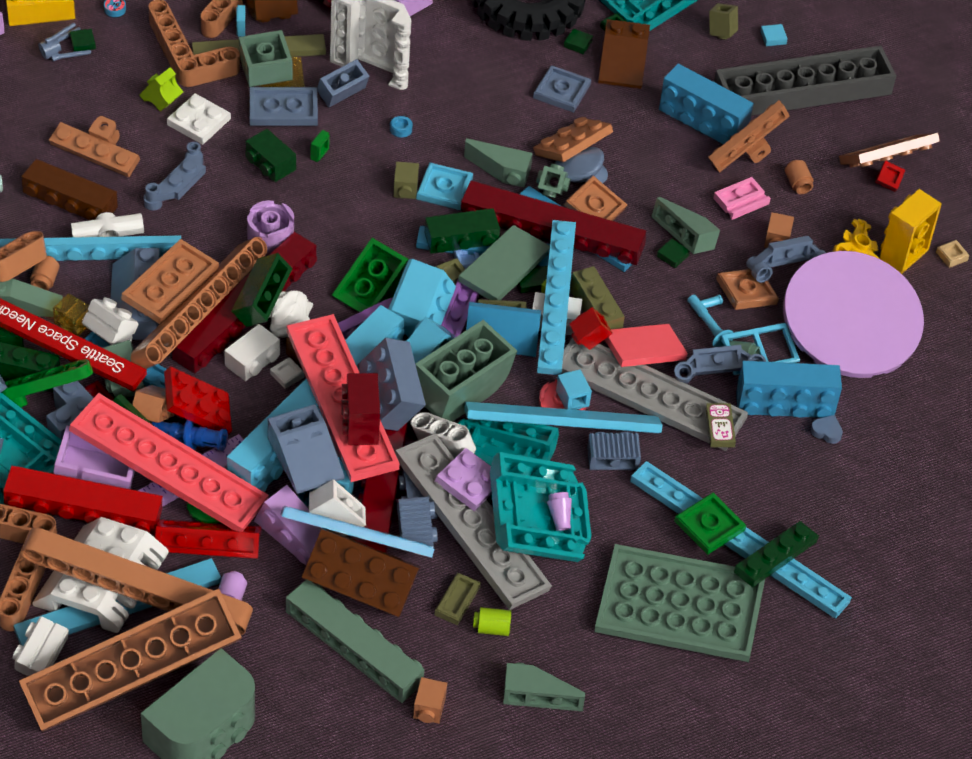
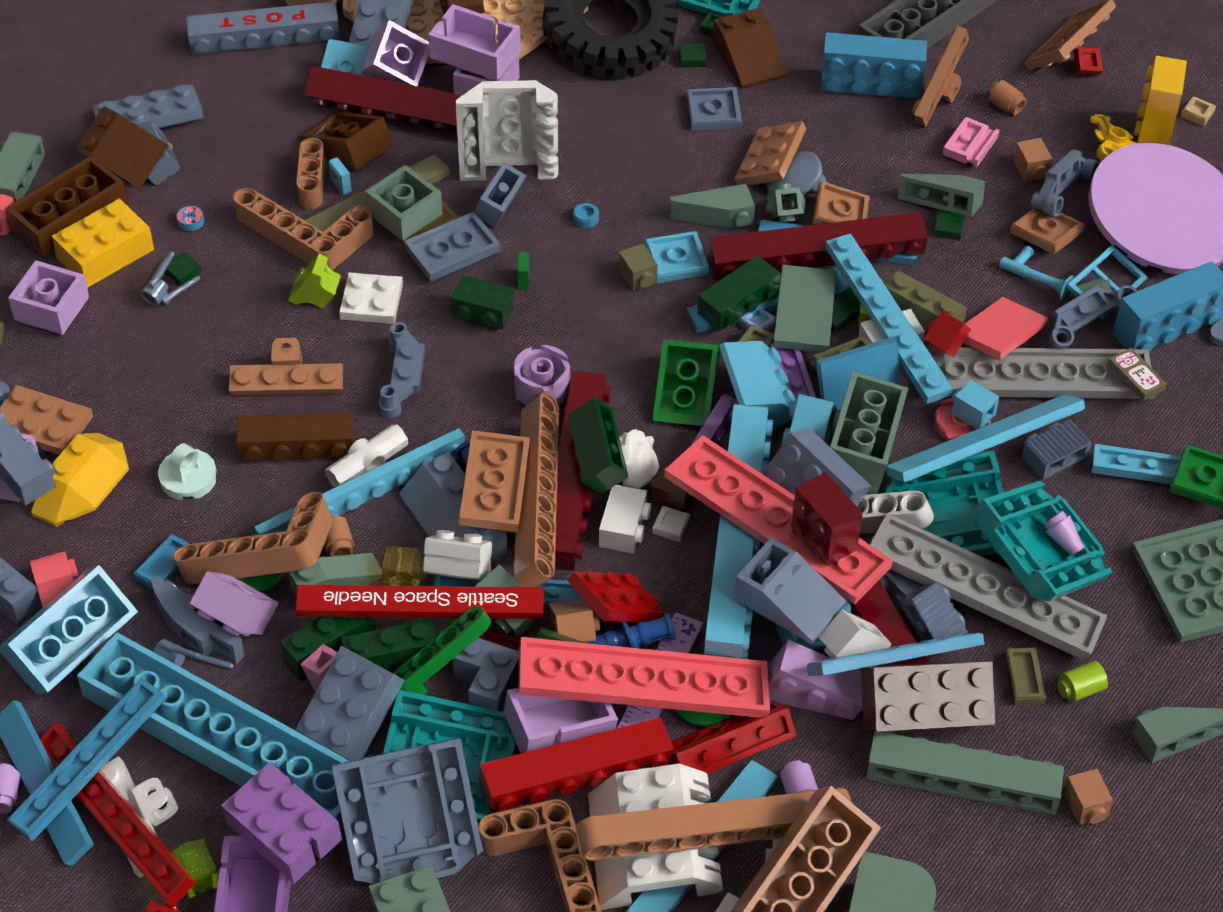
camera: 25 degrees left, 0 degrees up
(467, 479) = (955, 544): lavender plate -> none

